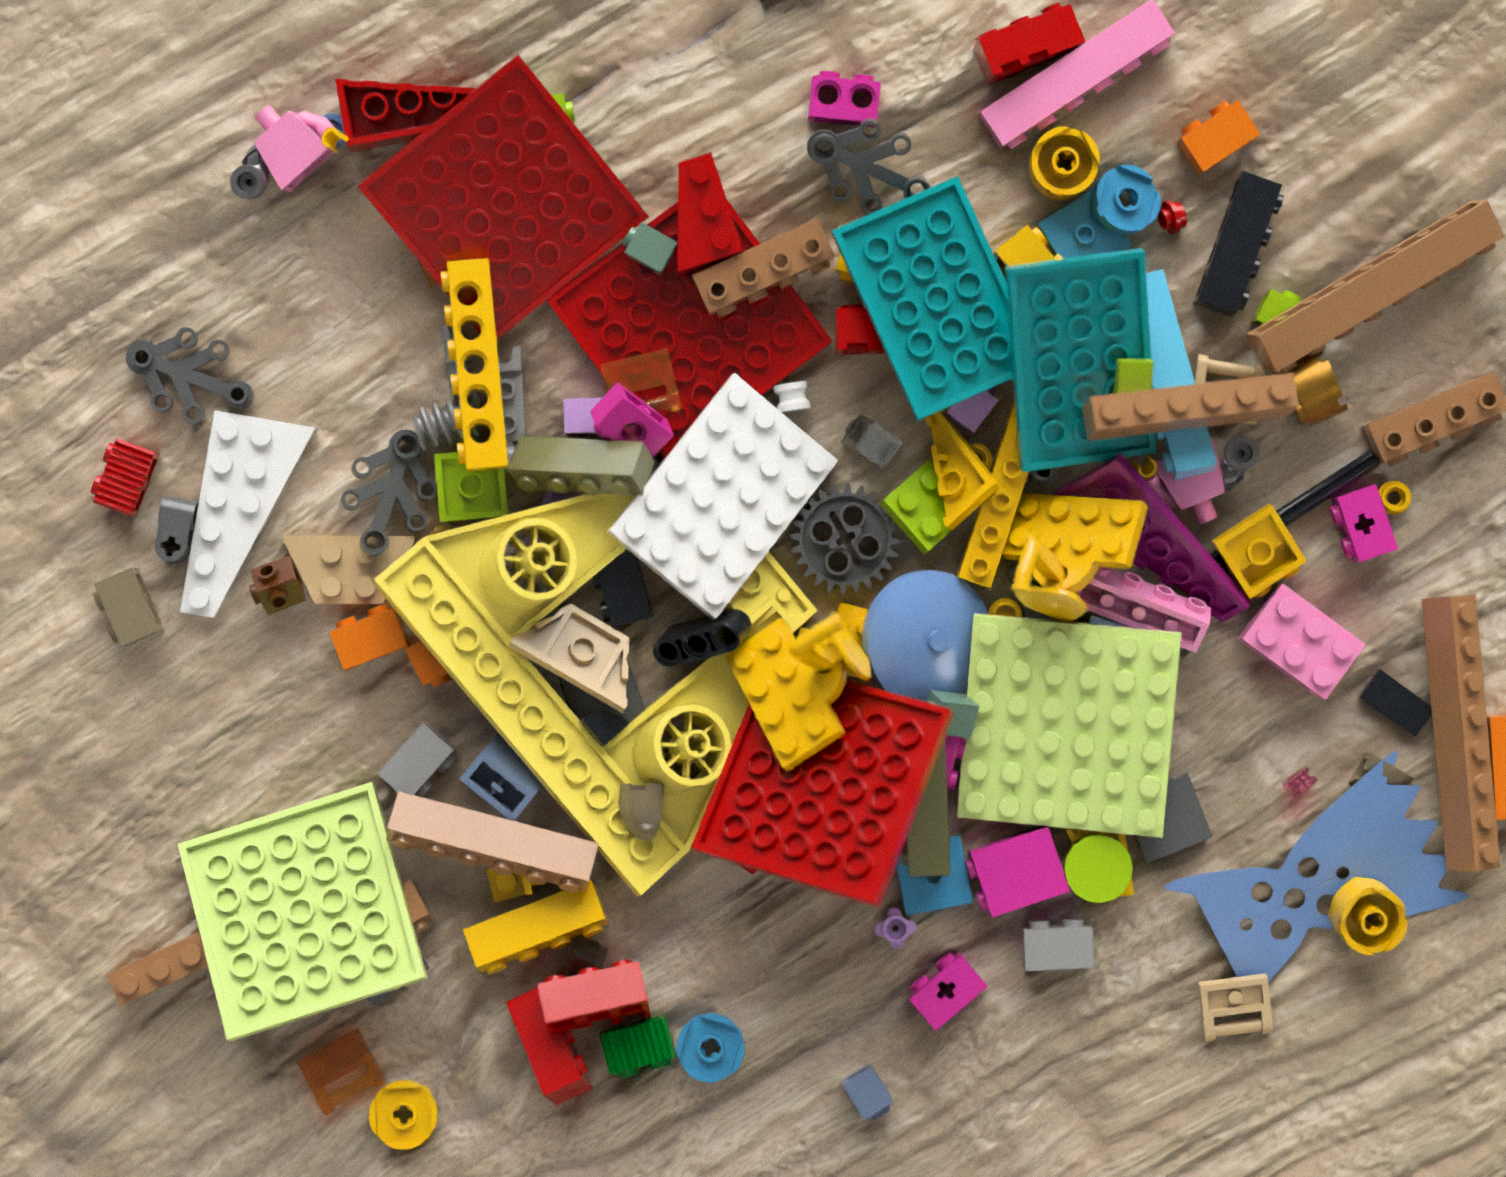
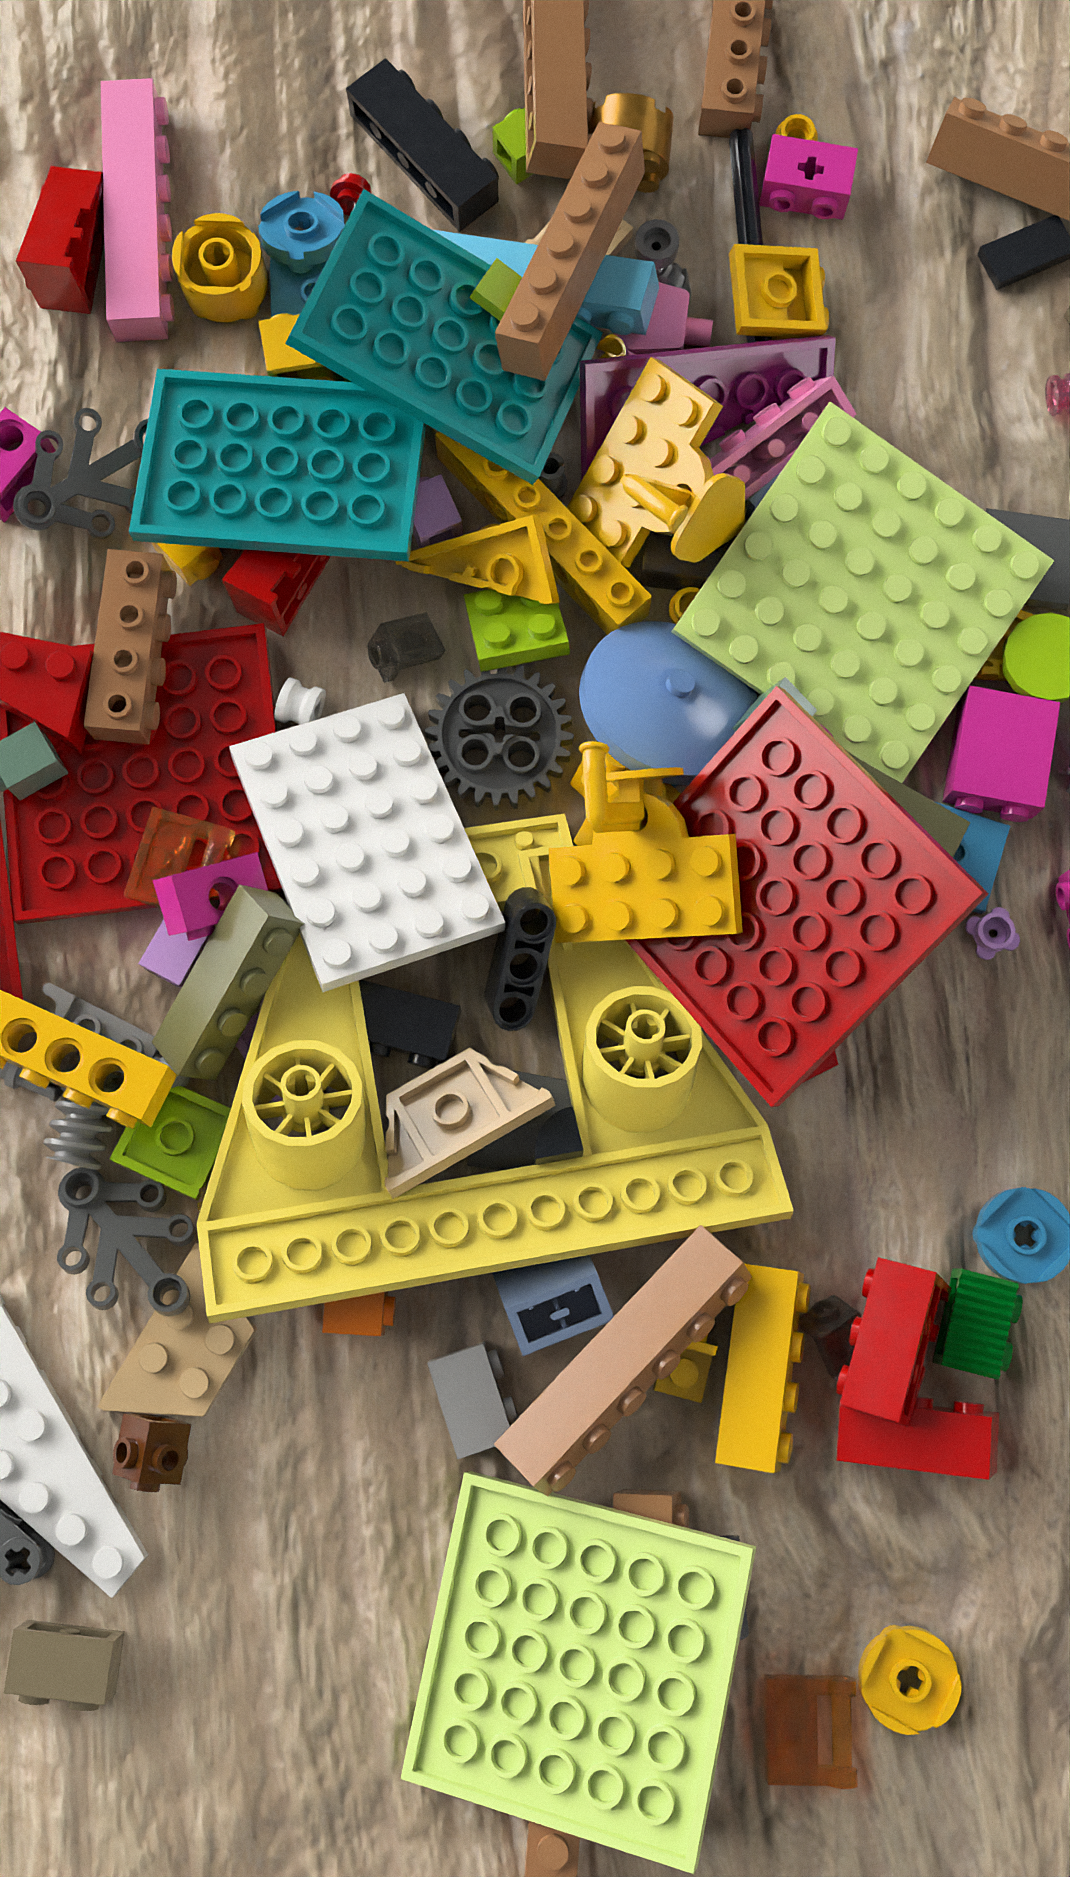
camera: 65 degrees left, 10 degrees down
(370, 637) = (284, 1371): orange brick -> none
(641, 809) = (687, 1148): dark tan brick -> none
(1217, 137) = (294, 104): orange brick -> none
(1301, 641) = (904, 306): bright pink brick -> none

